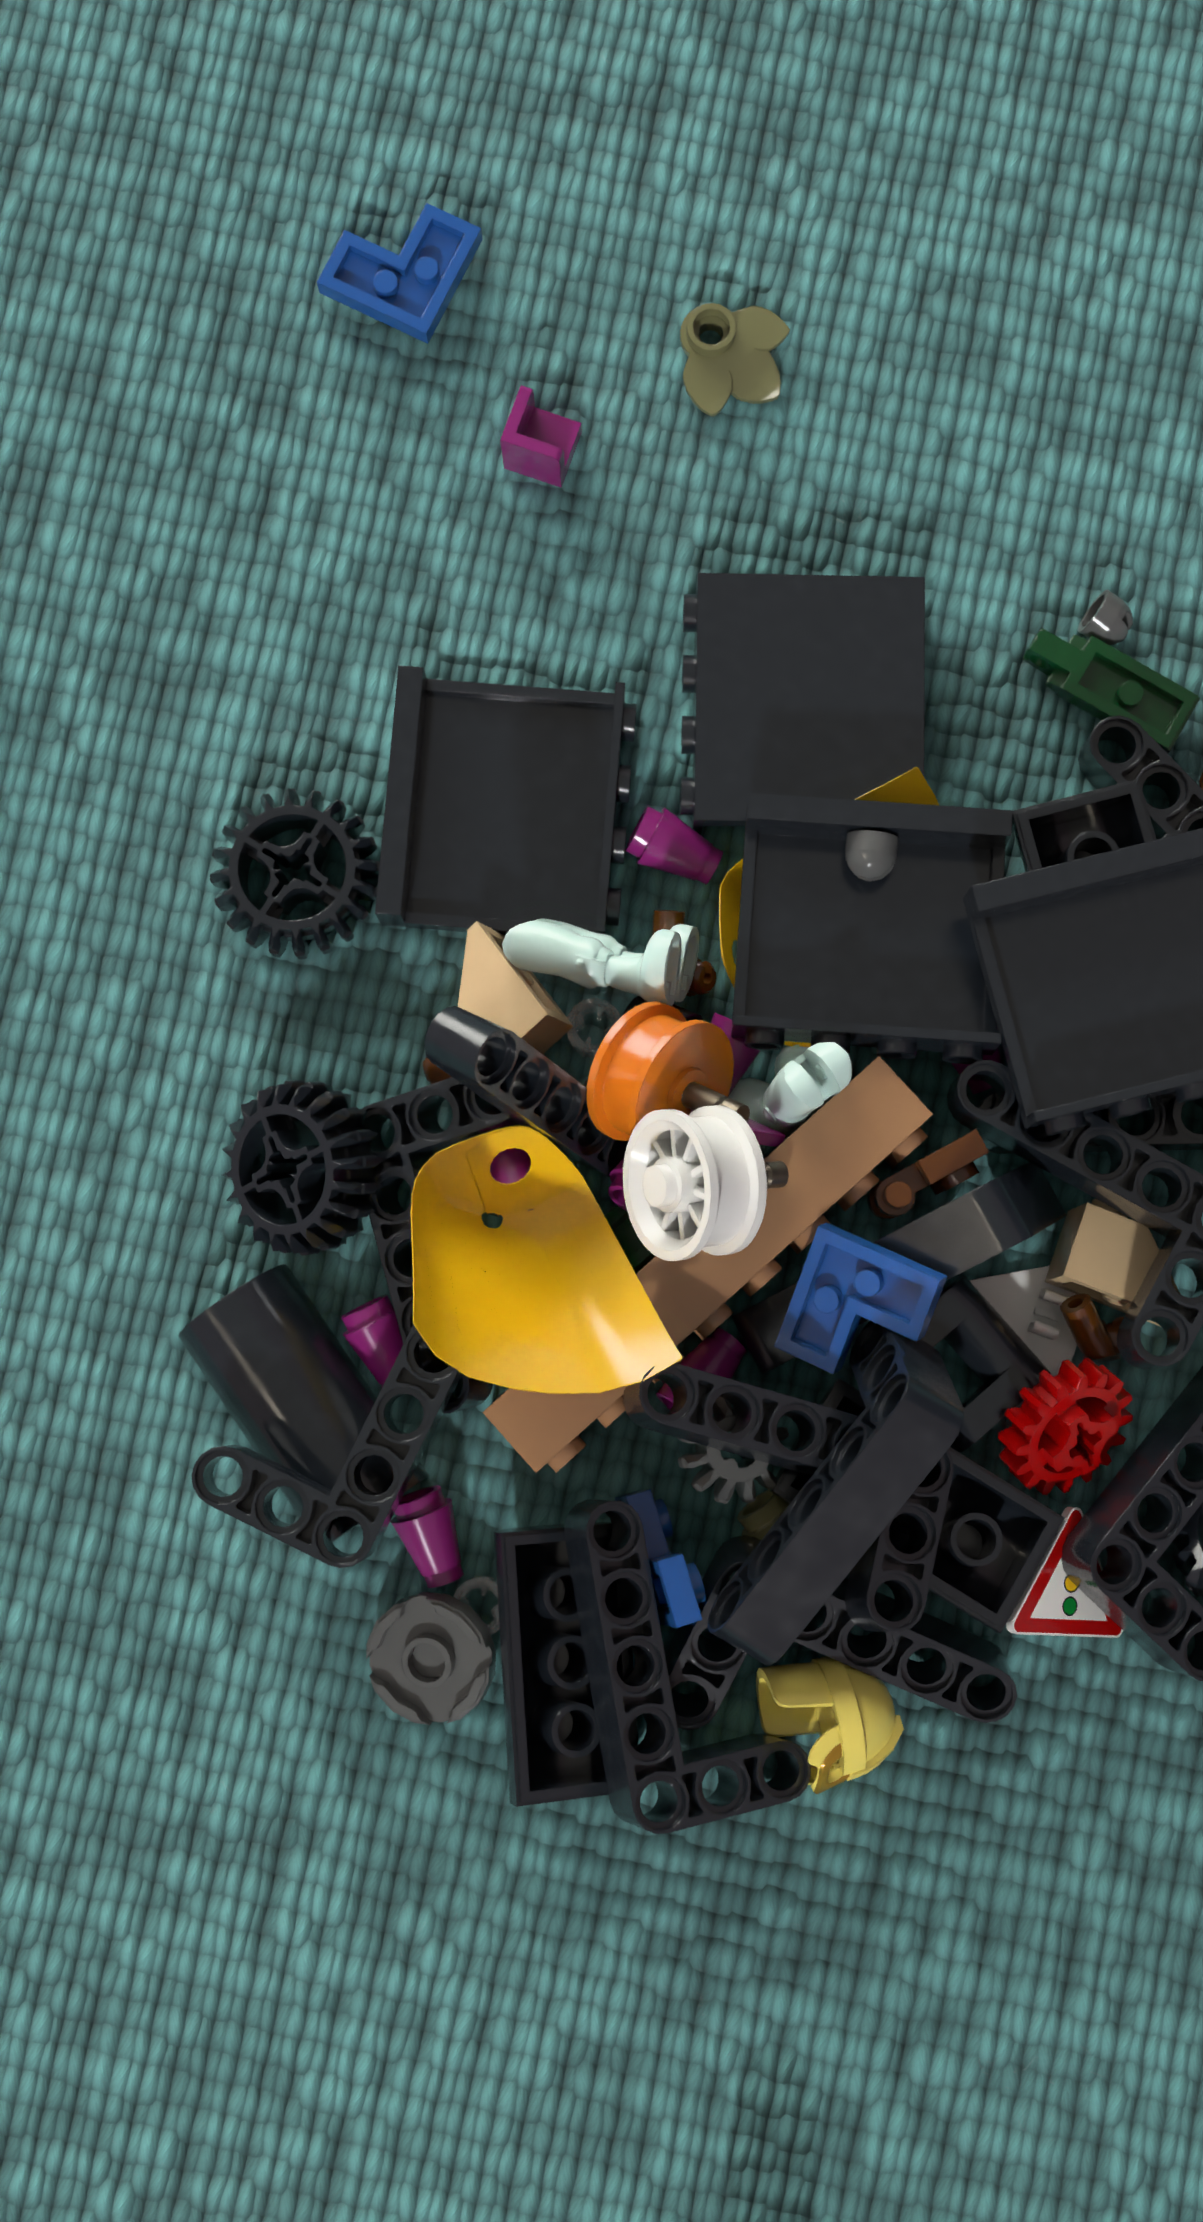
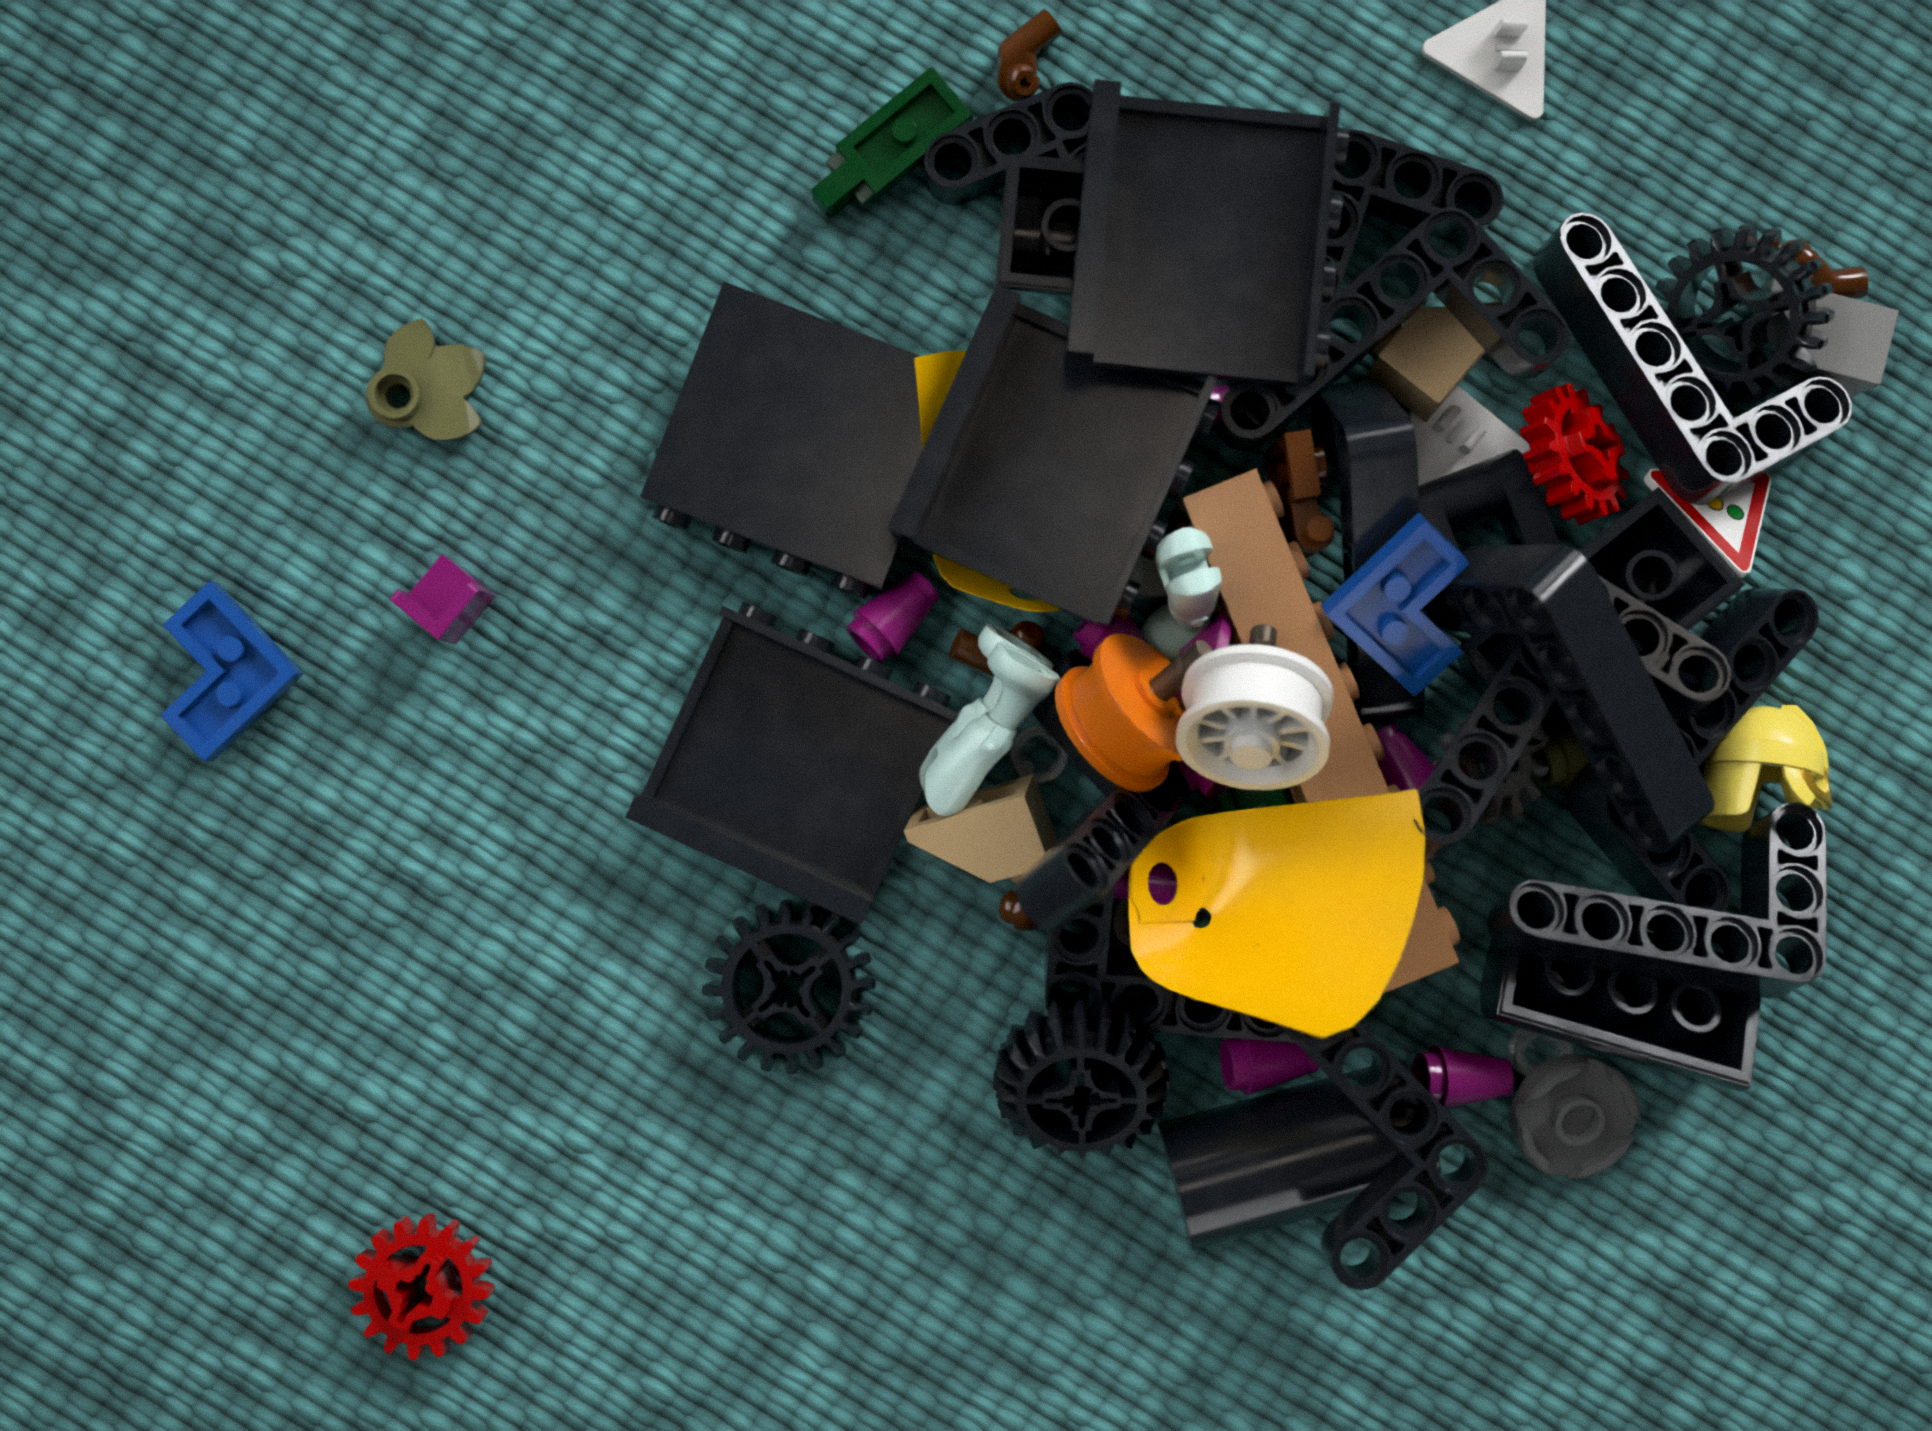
camera: 75 degrees left, 5 degrees up
(675, 1583) = (1598, 868): blue plate -> none
(871, 853) = (985, 434): dark grey hinge -> none
(1091, 1333) = (1494, 396): reddish brown arm -> none
(1107, 619) = (821, 125): dark grey hinge -> none

